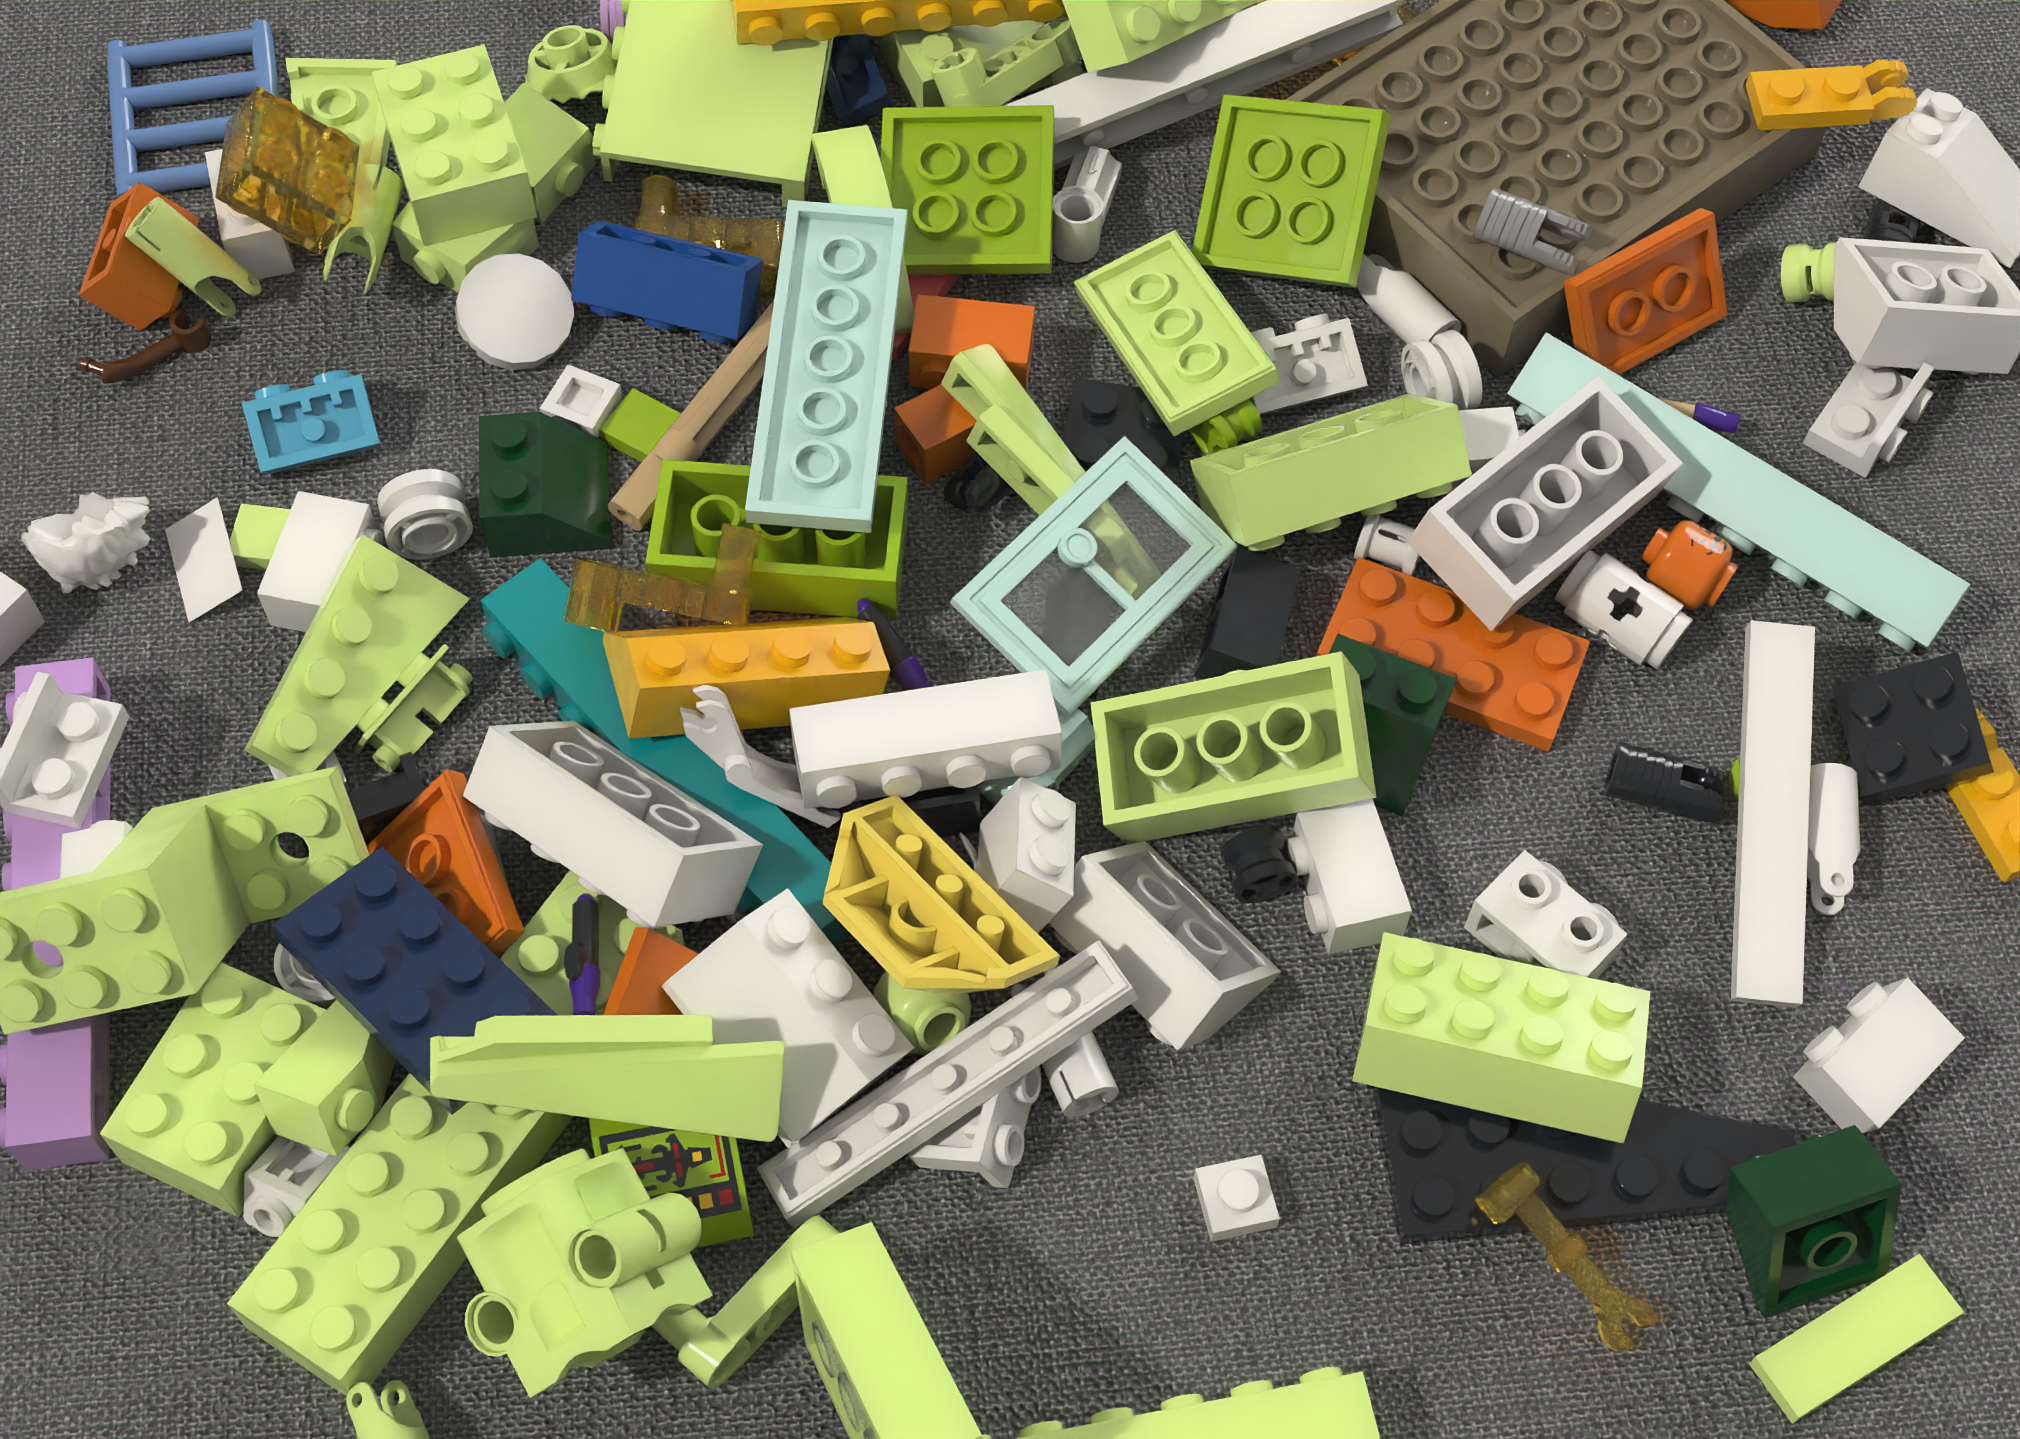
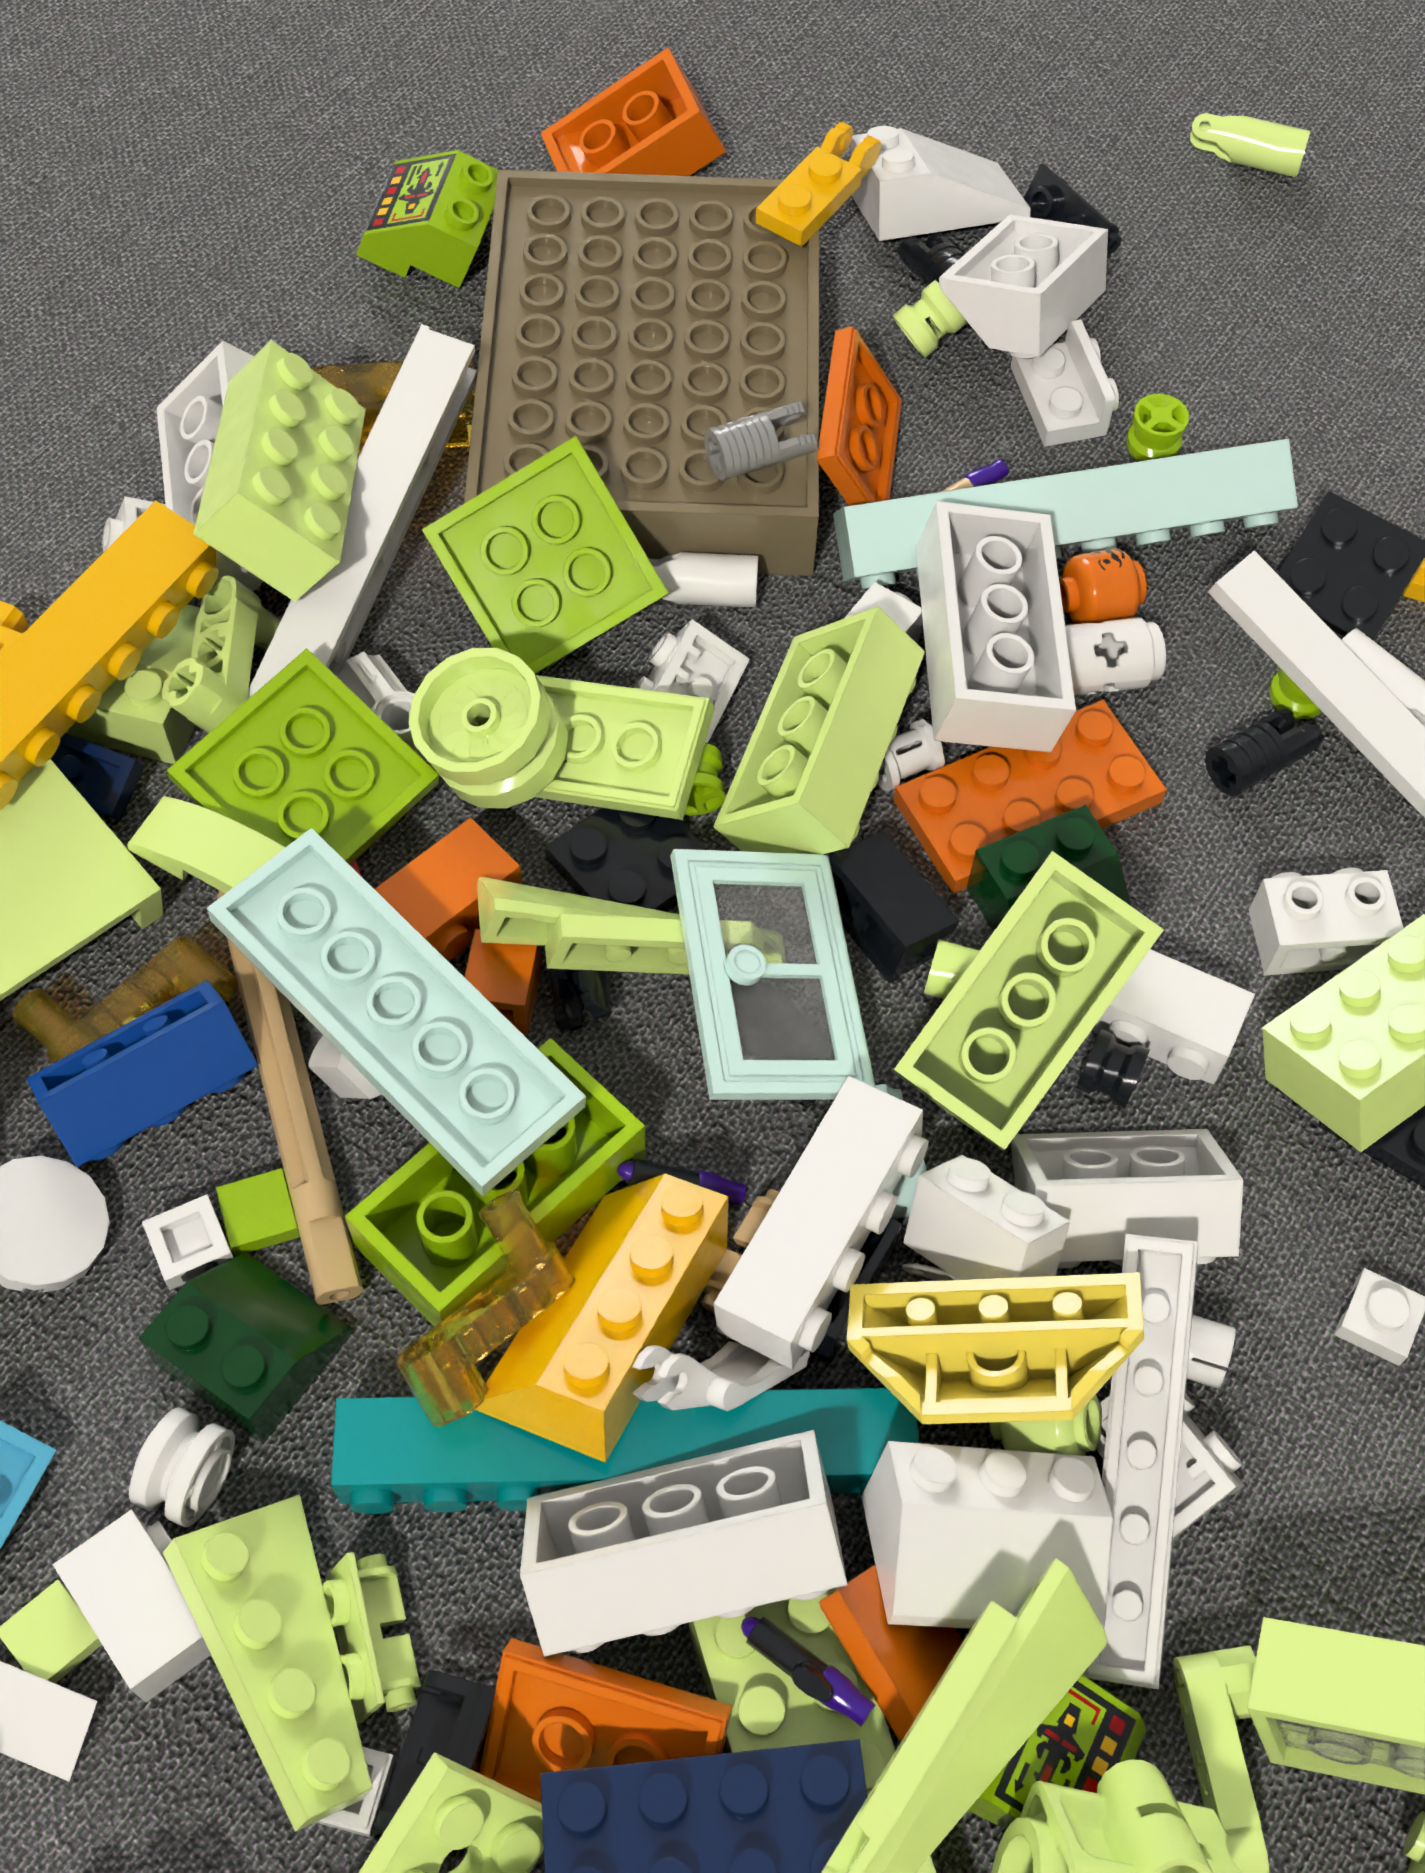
camera: 50 degrees left, 0 degrees up
(1111, 260) = (488, 727): none -> yellowish green wheel
(1443, 370) = (793, 601): white wheel -> none
(1916, 496) = (1157, 427): none -> lime wheel

